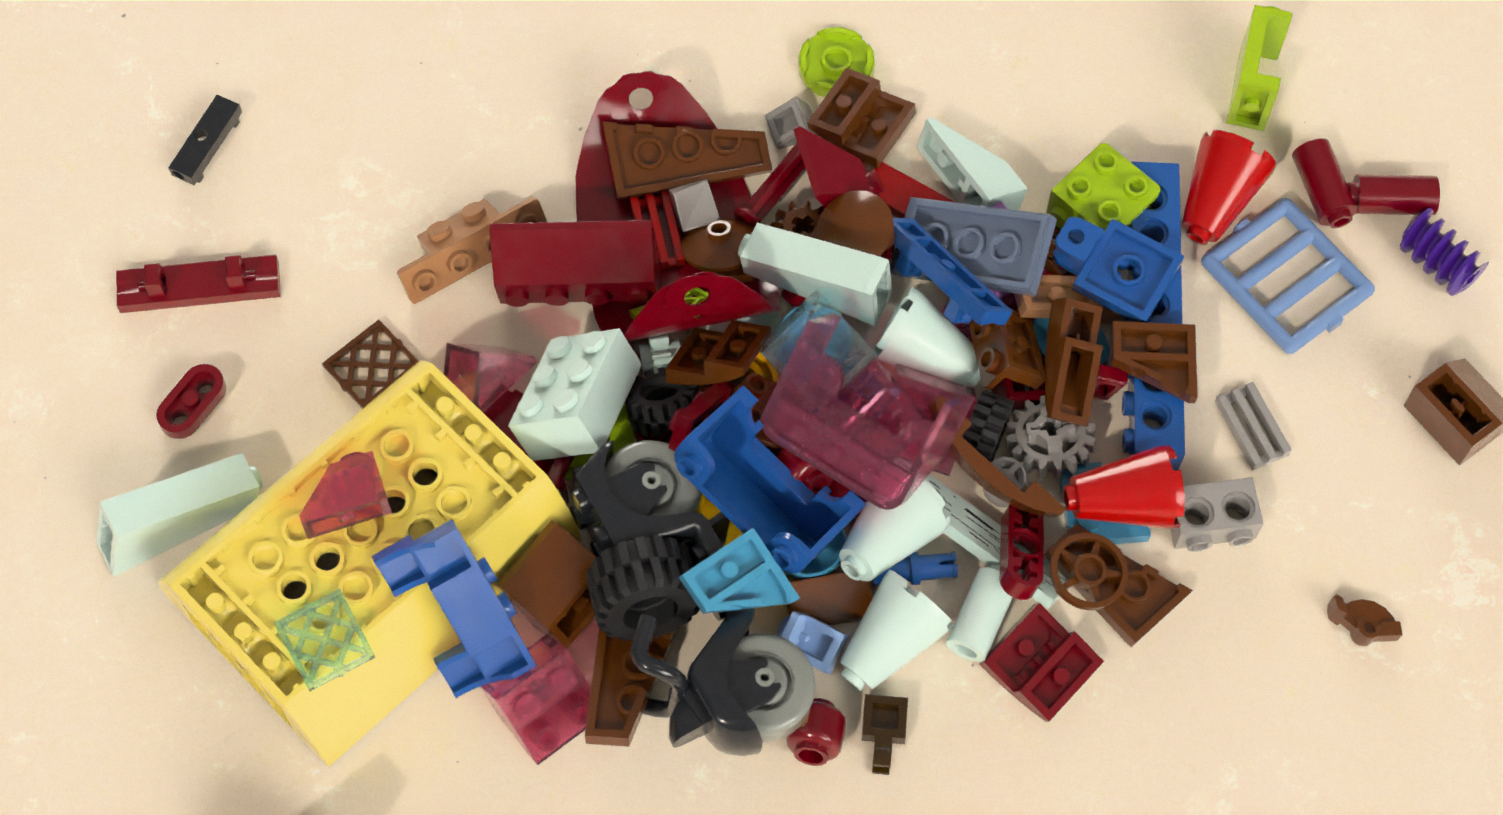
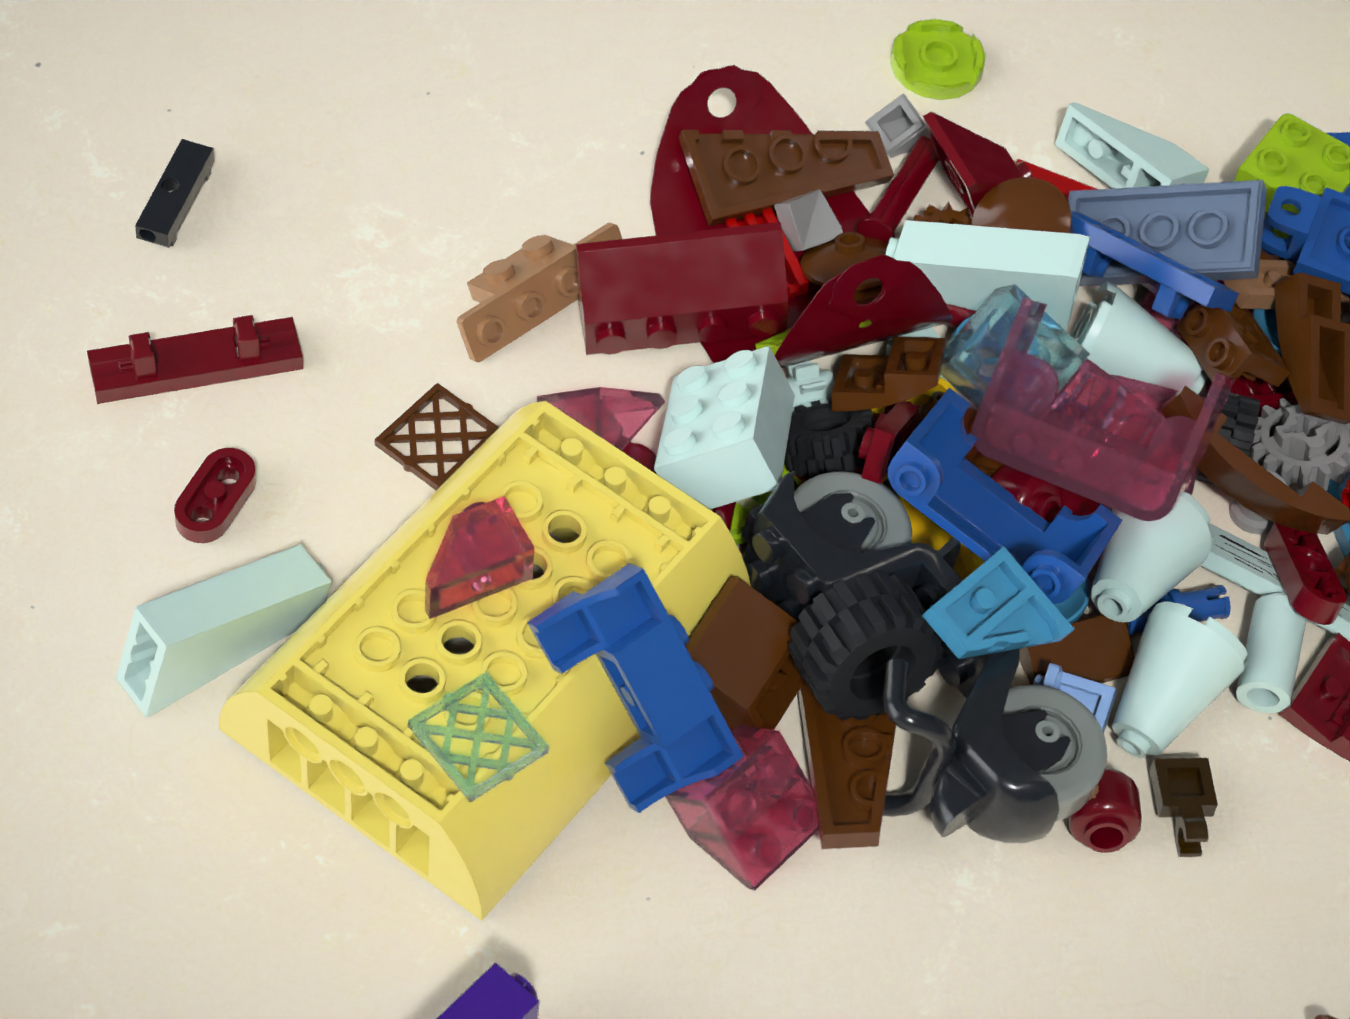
camera: 15 degrees left, 10 degrees down
(861, 117) = (991, 108): reddish brown slope -> none

